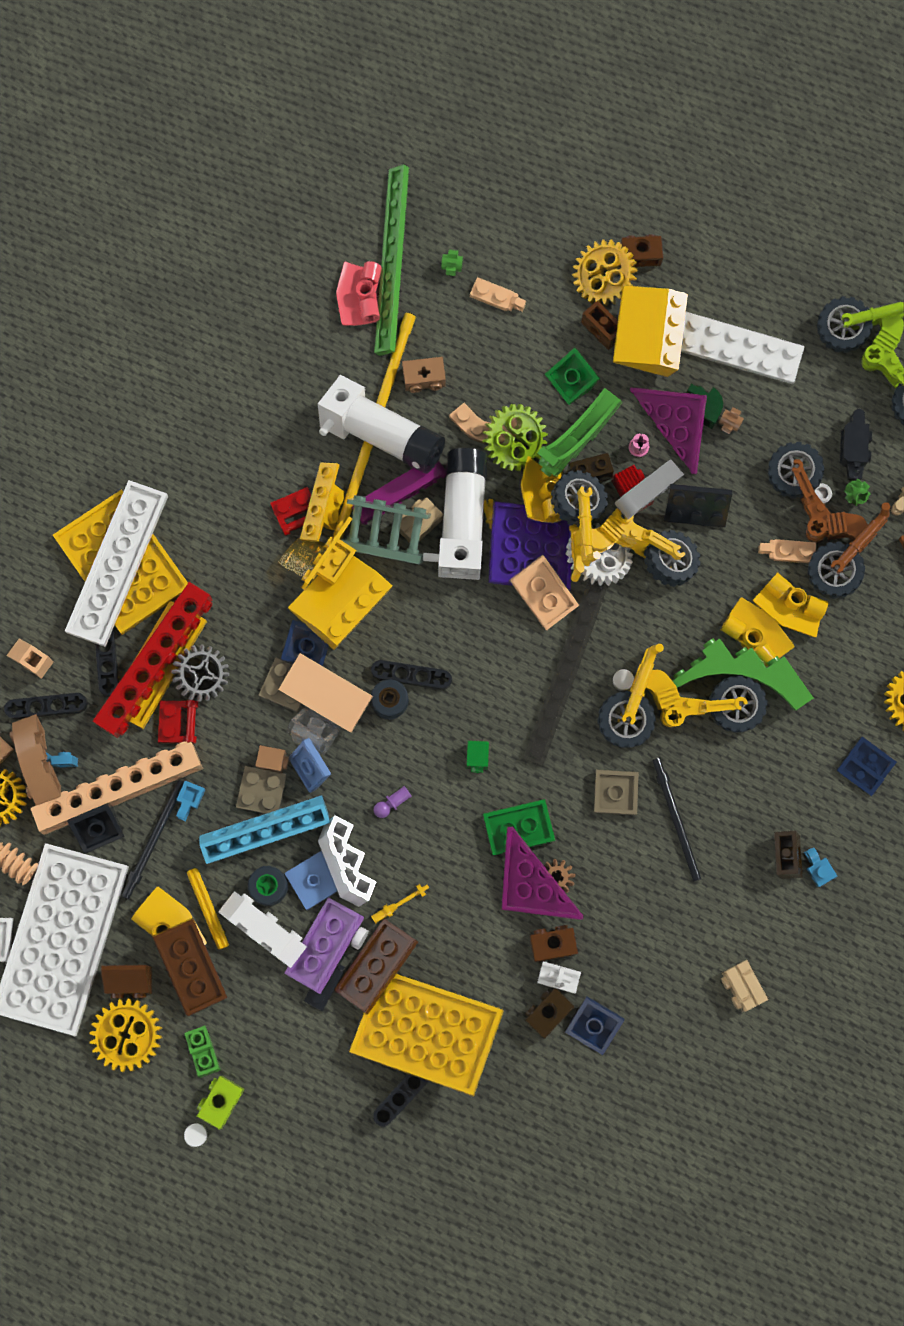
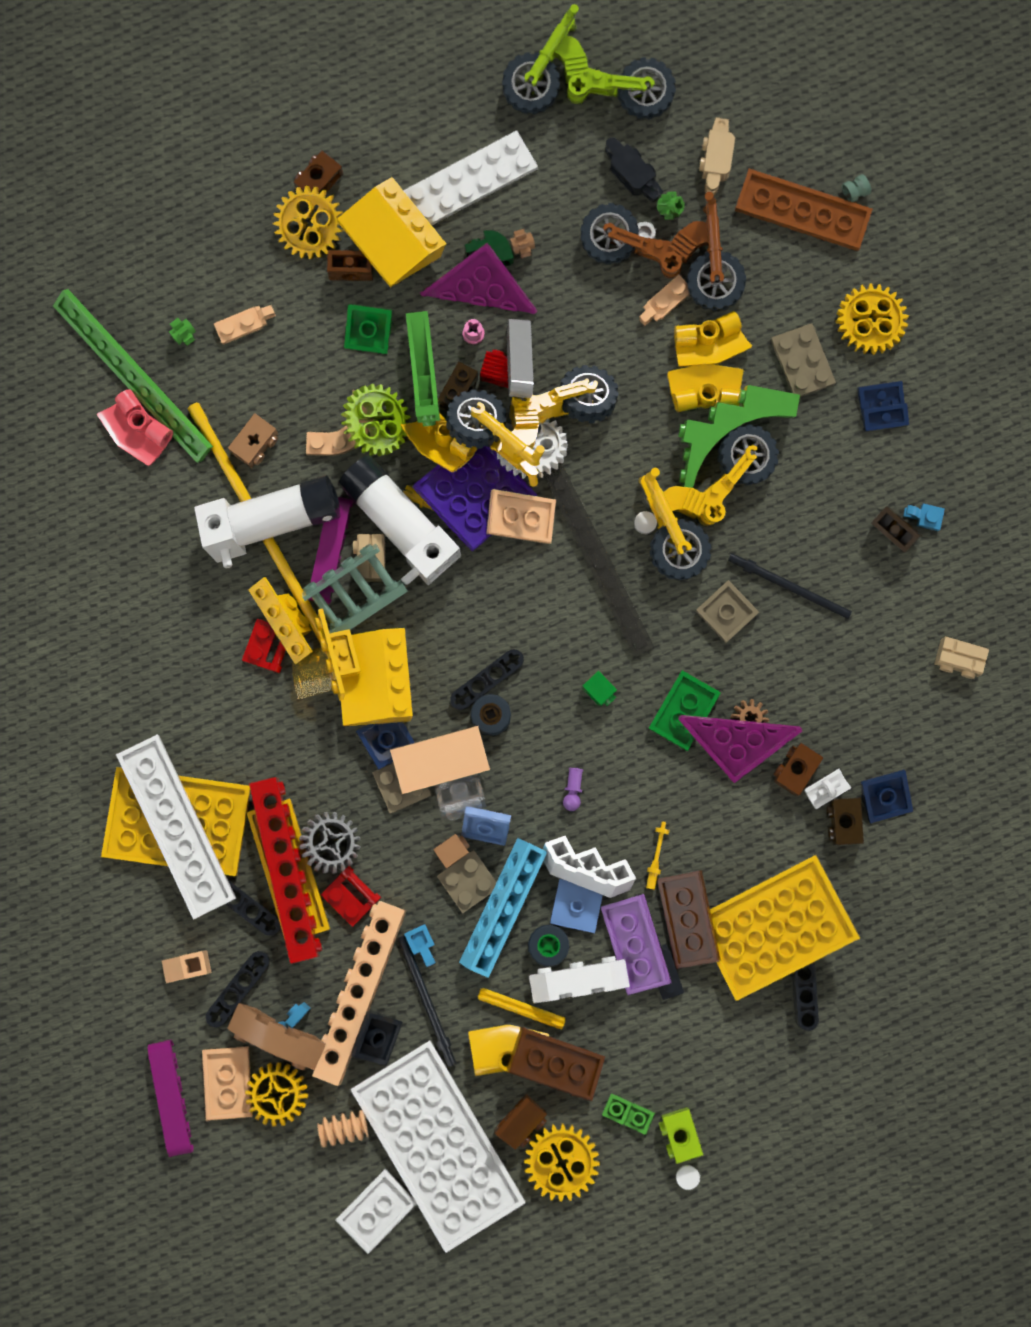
camera: 45 degrees left, 5 degrees up
(359, 938) = (654, 911): white tile -> none
(697, 505) = (566, 334): black plate -> none
(842, 682) = (803, 360): none -> dark tan plate

